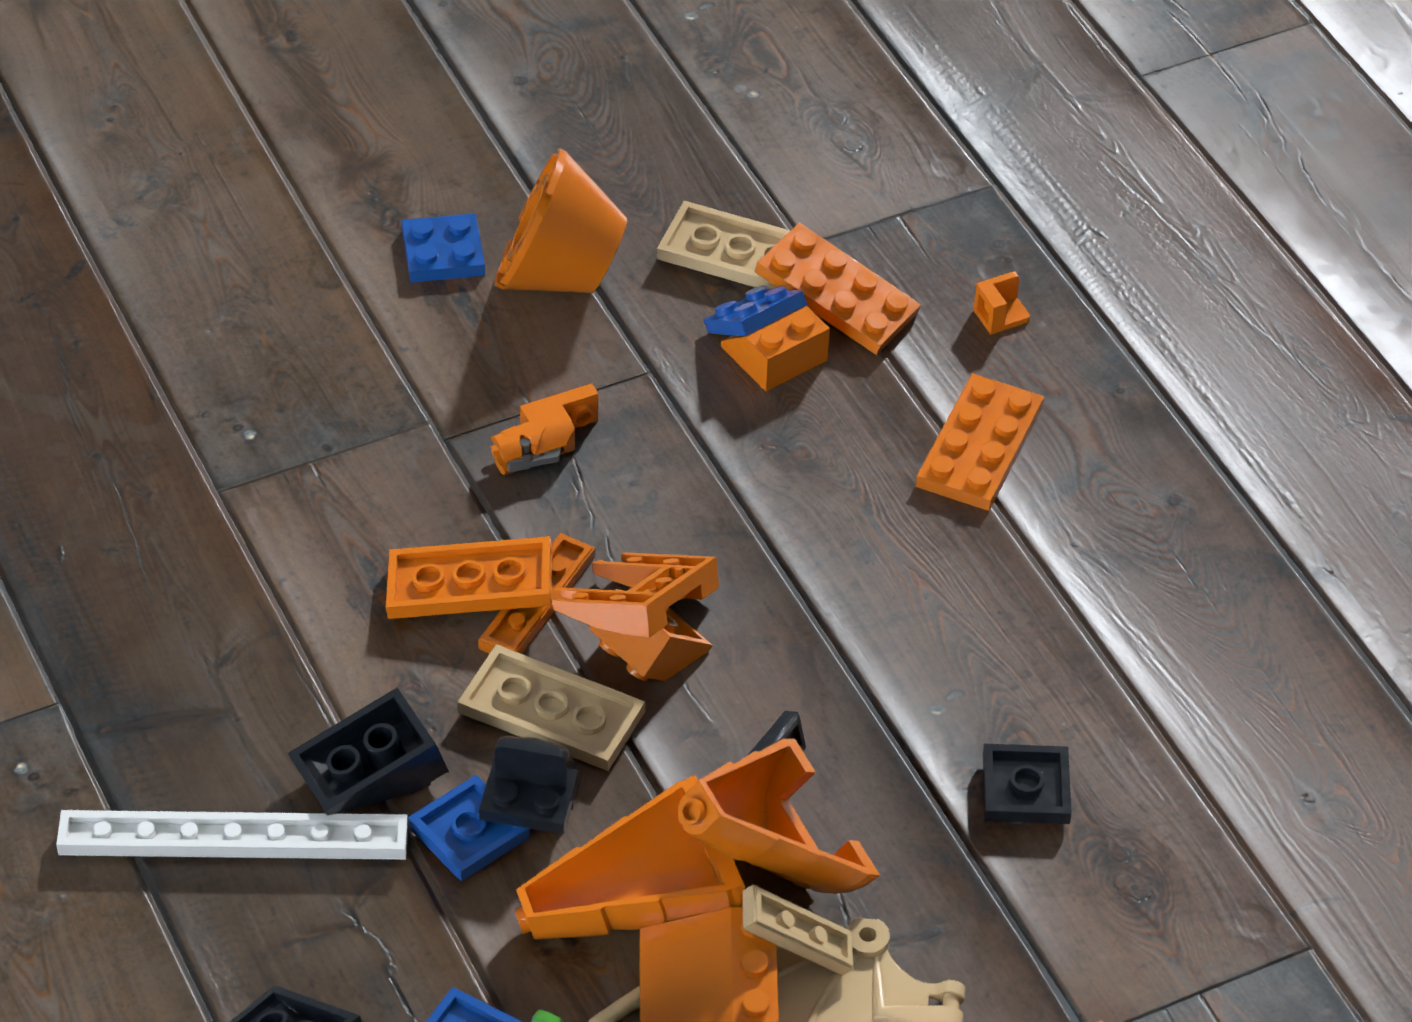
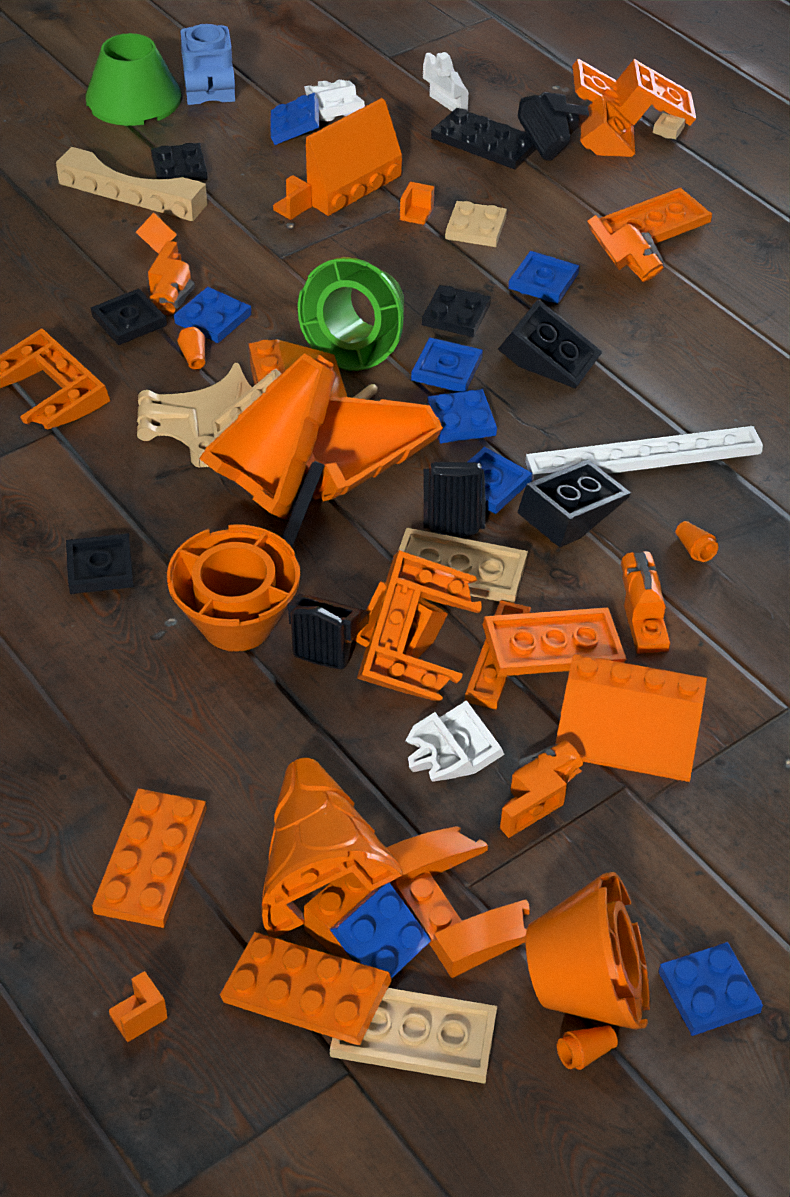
camera: 170 degrees right, 0 degrees up
(226, 691) = (698, 543): none -> orange cone
(336, 612) = (644, 603): none -> orange plate
(408, 491) = (632, 716): none -> orange slope
(471, 954) = (463, 415): none -> blue plate
(626, 489) = (452, 744): none -> white plate
(704, 378) = (455, 942): none -> orange wedge
(747, 607) = (324, 630): none -> black piece
(802, 372) = (316, 842): none -> orange cone
(857, 640) = (234, 584): none -> orange cone

